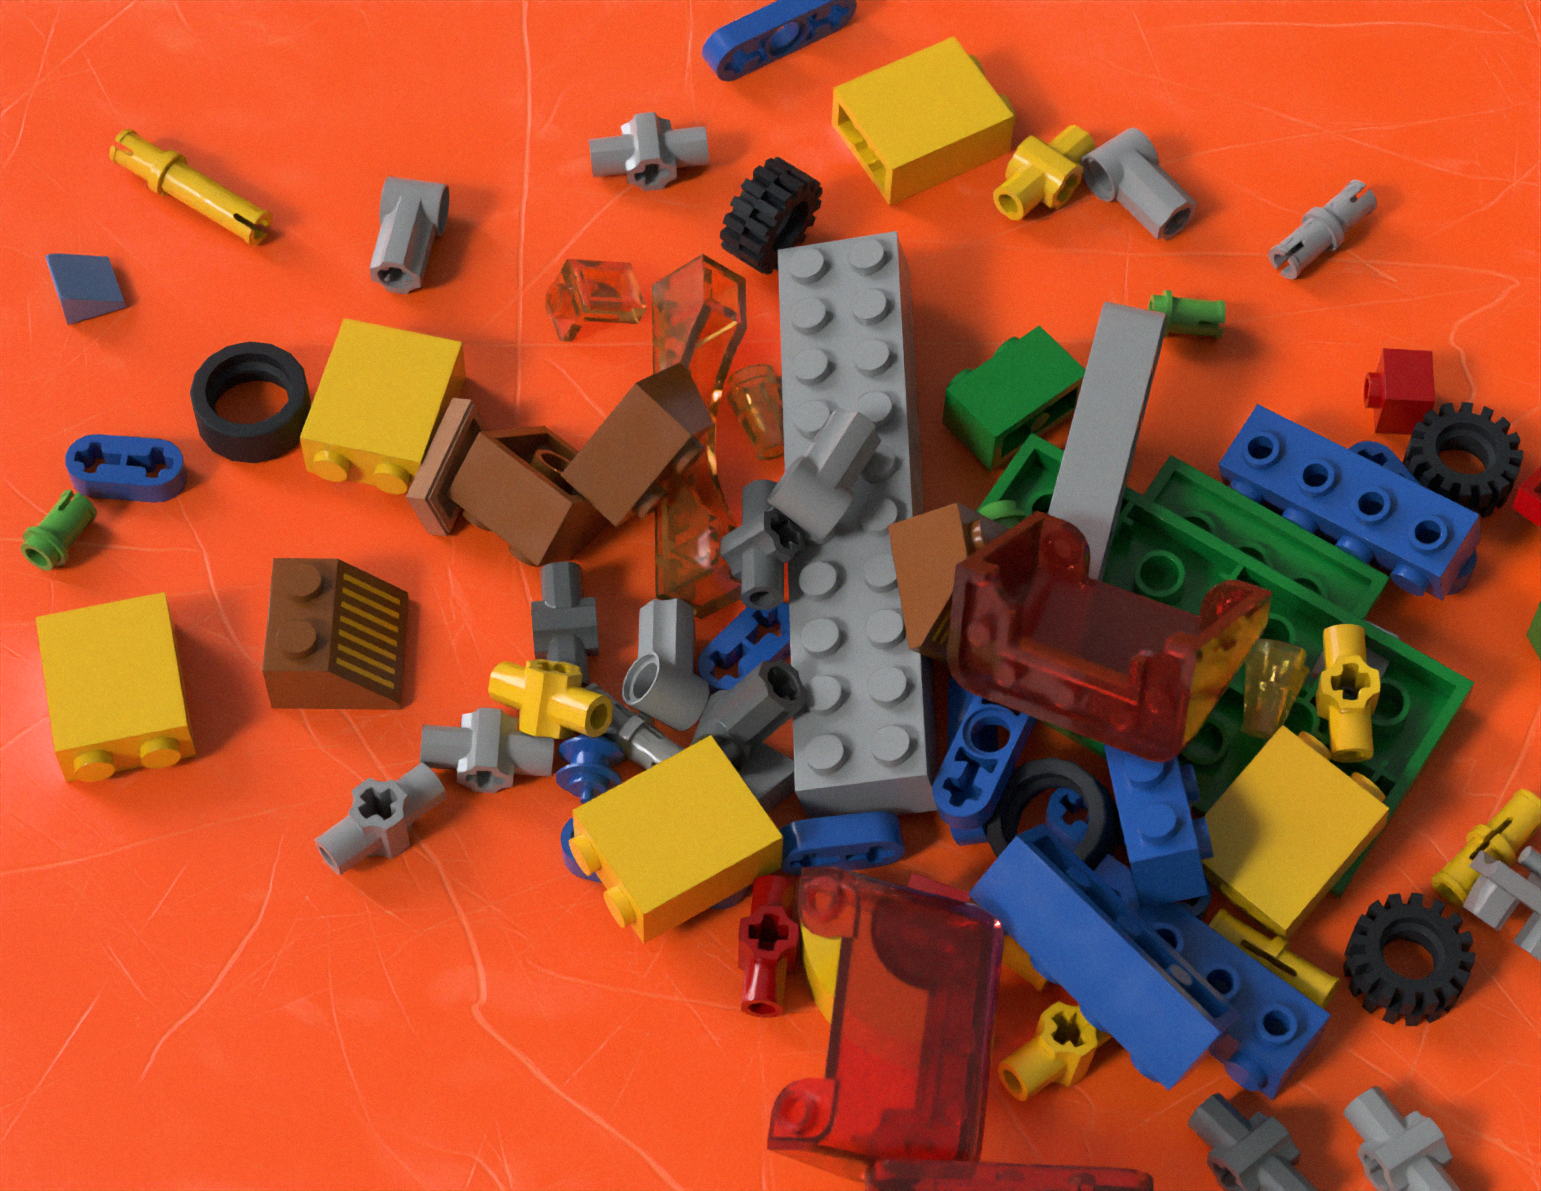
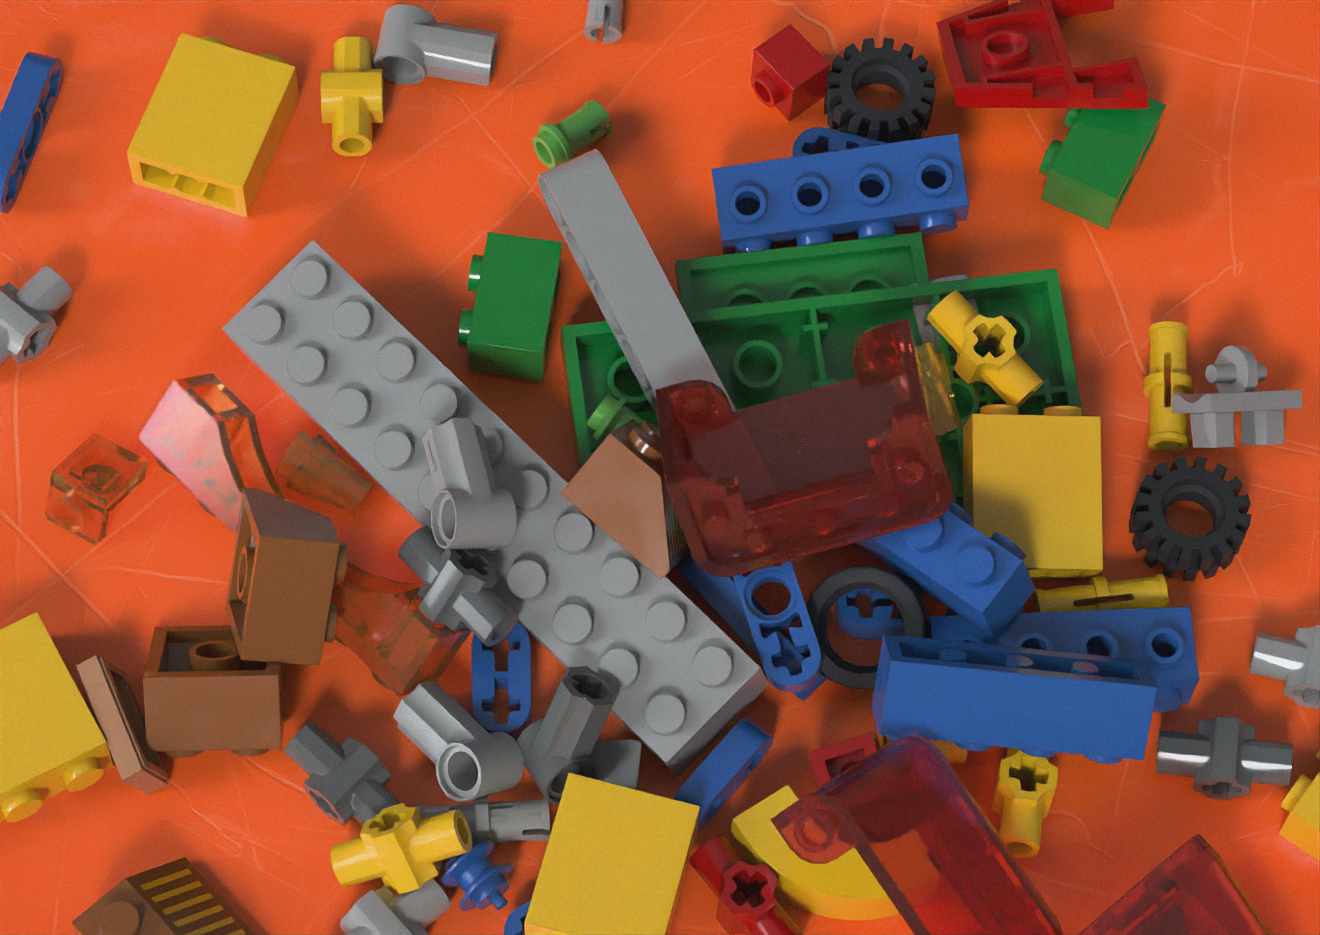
camera: 45 degrees left, 5 degrees up
(770, 214) = (181, 302): black tyre -> none

